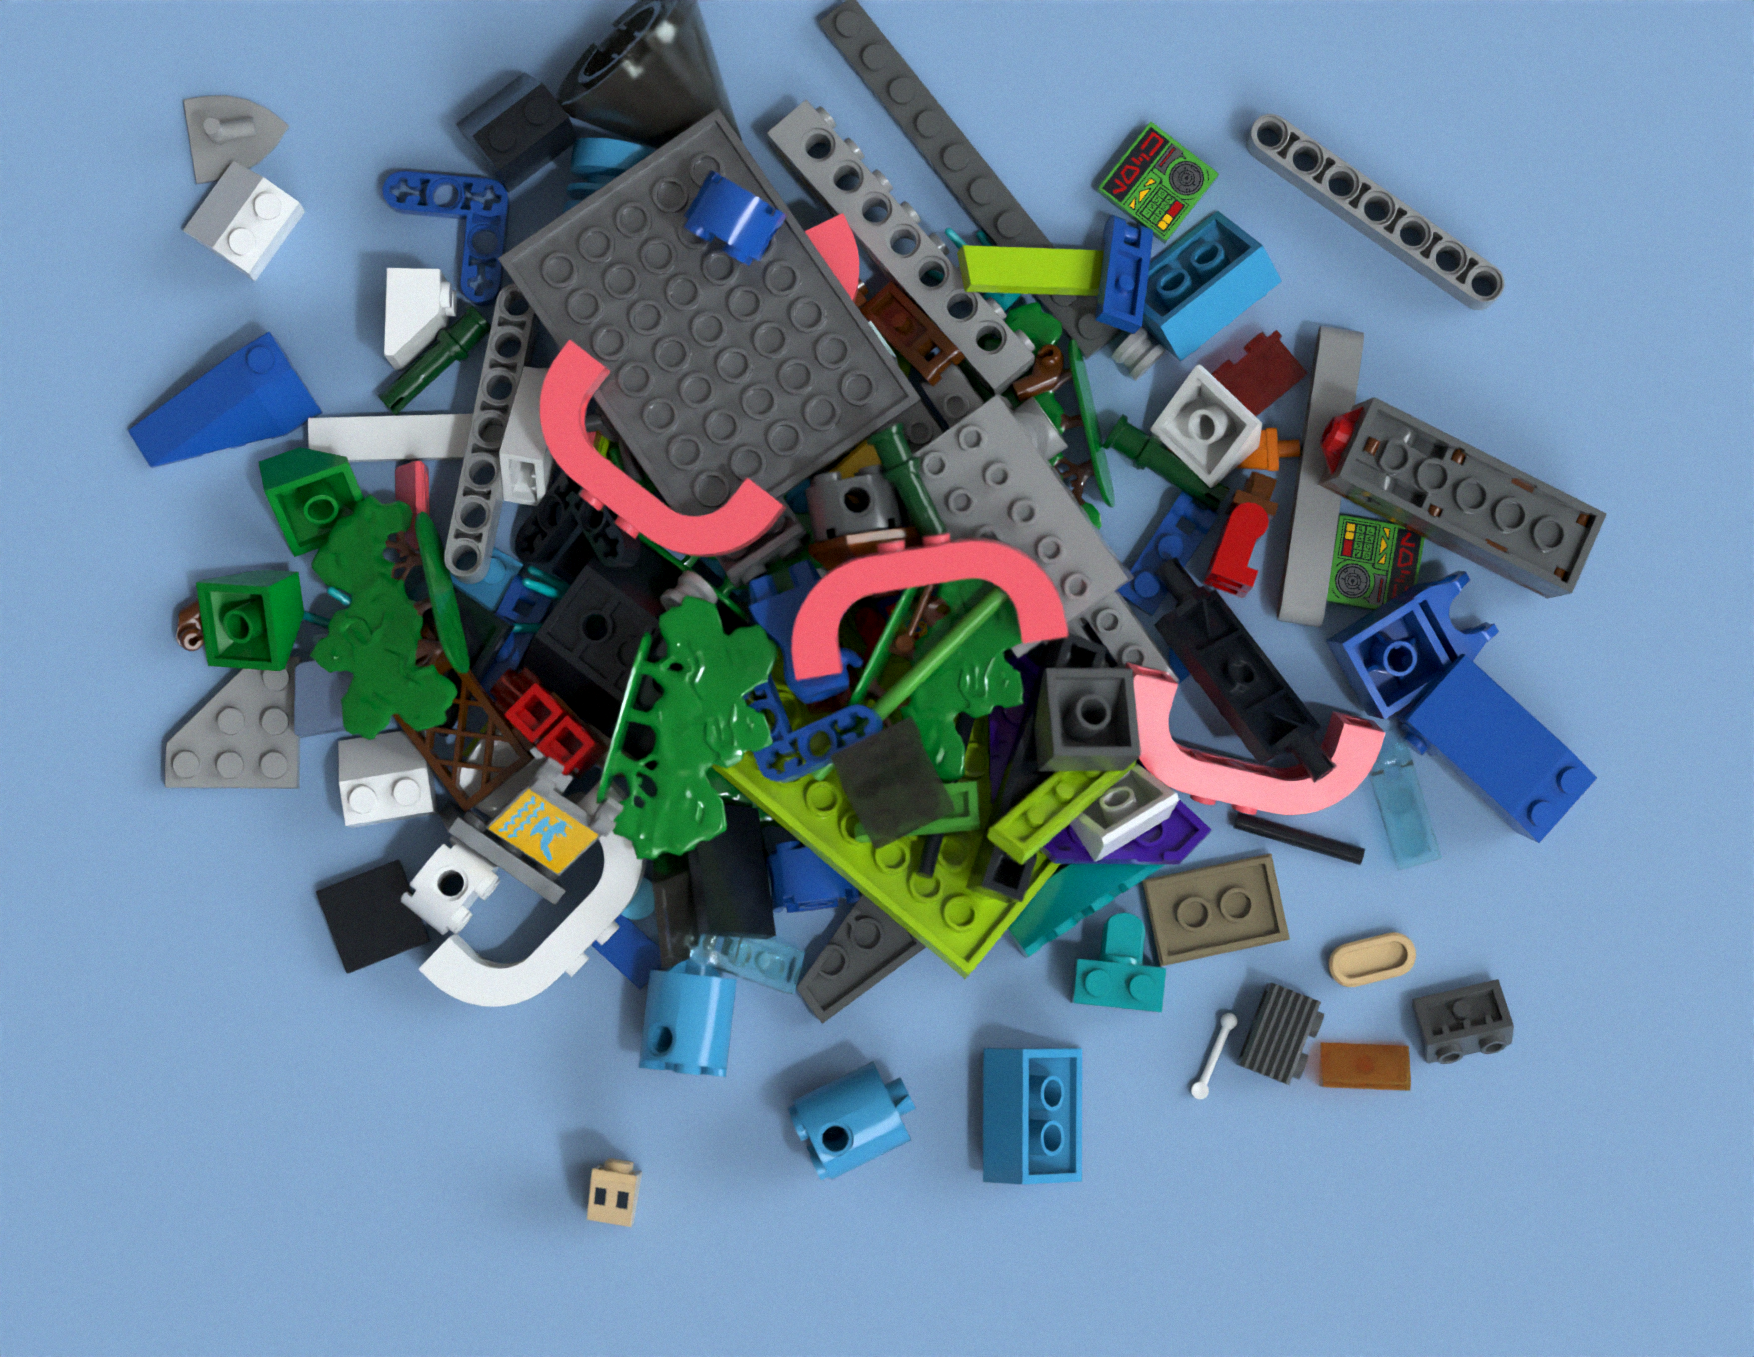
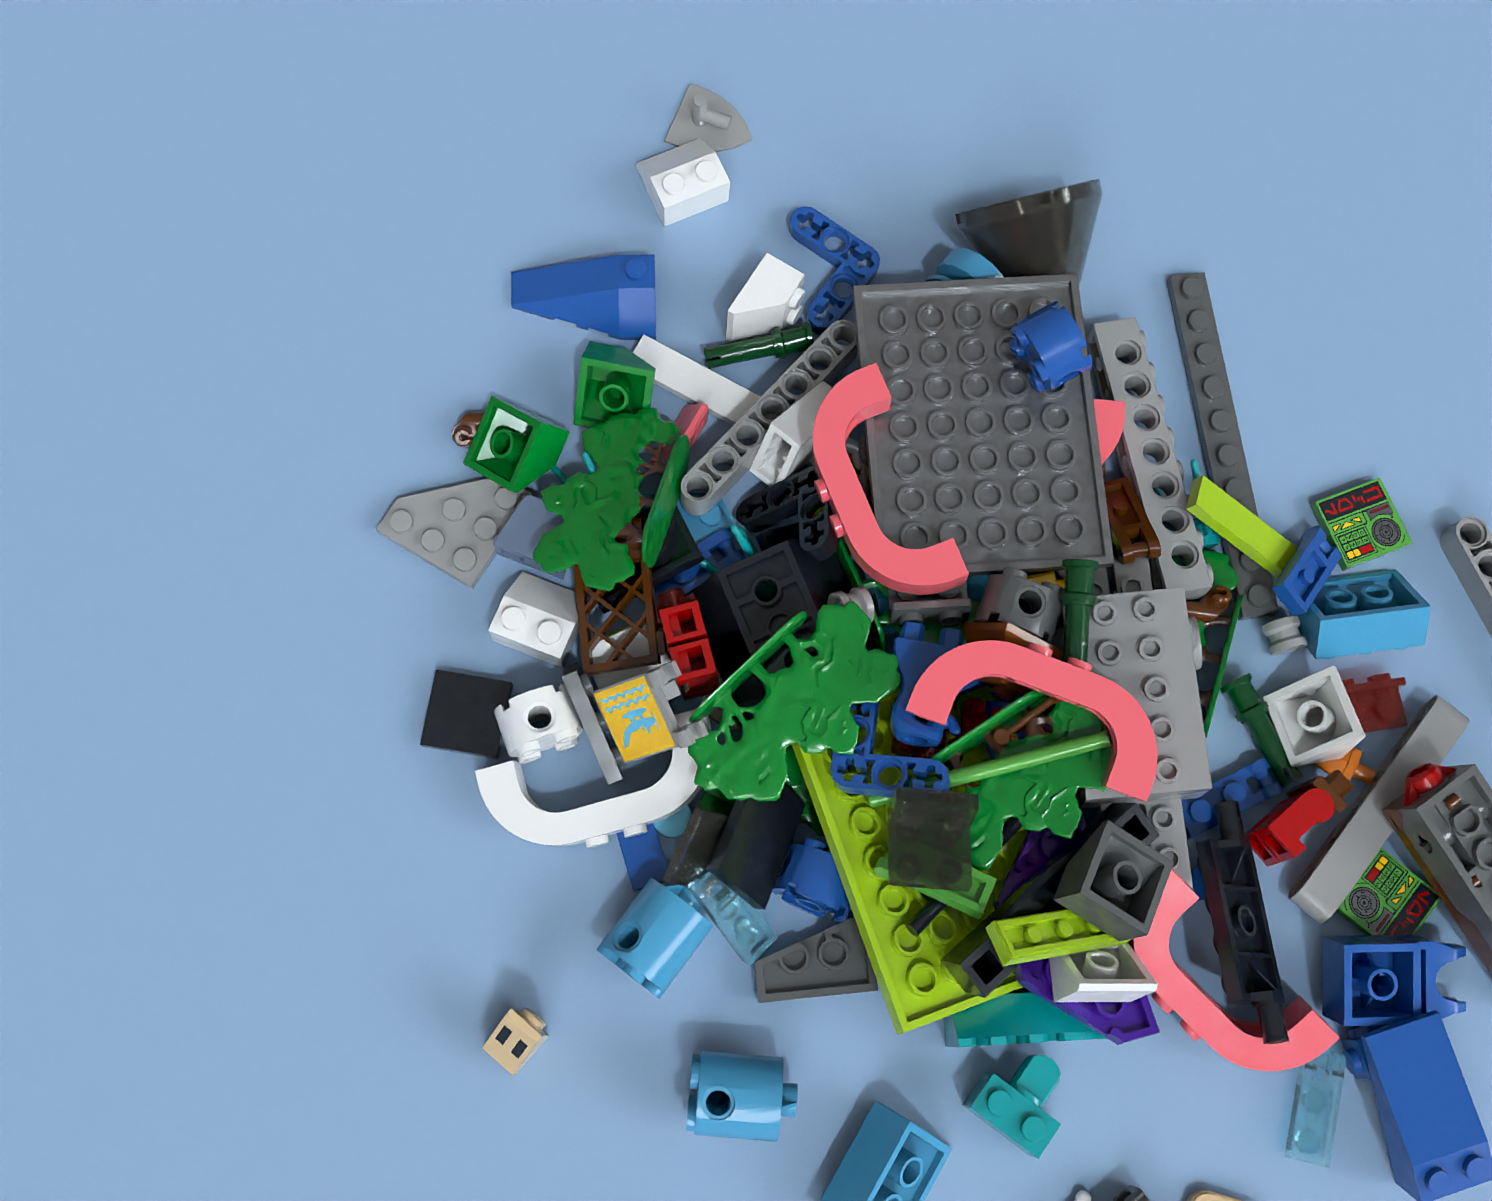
camera: 25 degrees right, 10 degrees down
(518, 130) = (915, 227): black slope -> none
(1215, 910) = (1120, 1100): dark tan tile -> none
(1299, 838) = (1217, 1082): black bar -> none

